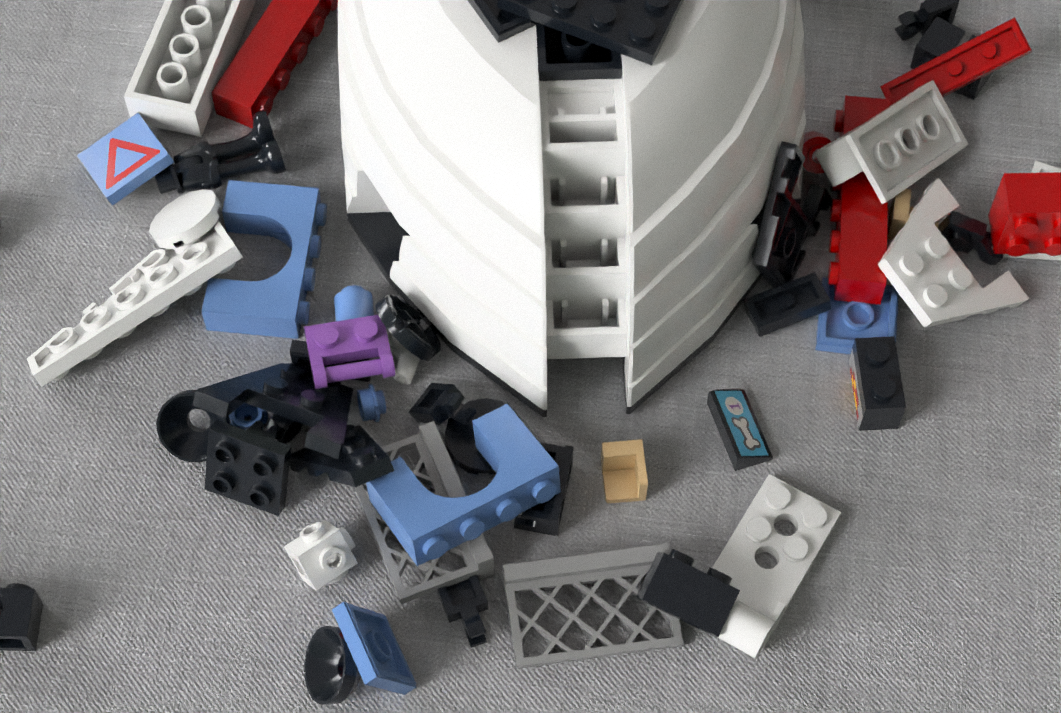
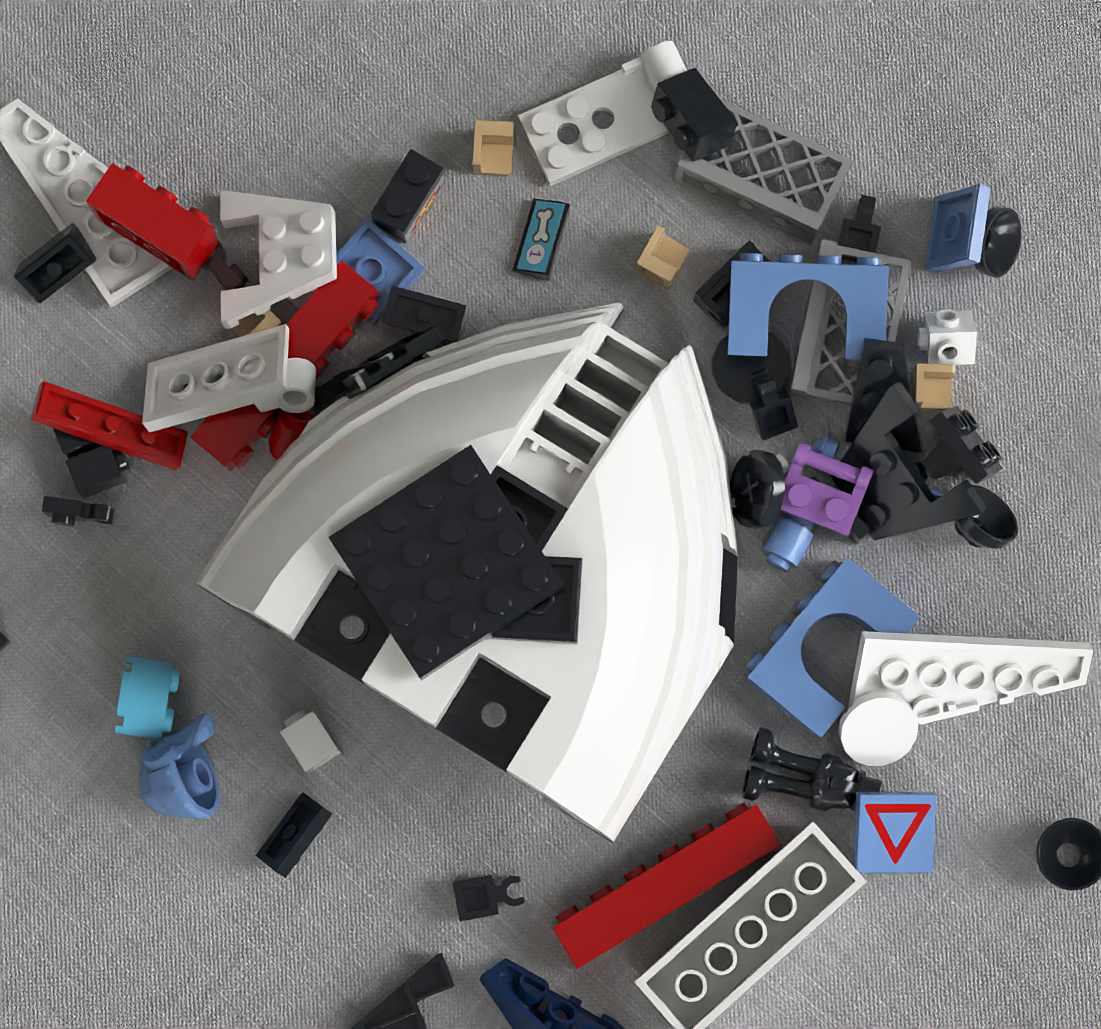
camera: 145 degrees left, 20 degrees up
(311, 506) = (932, 386): none -> tan panel
(841, 471) = (493, 148): none -> tan panel

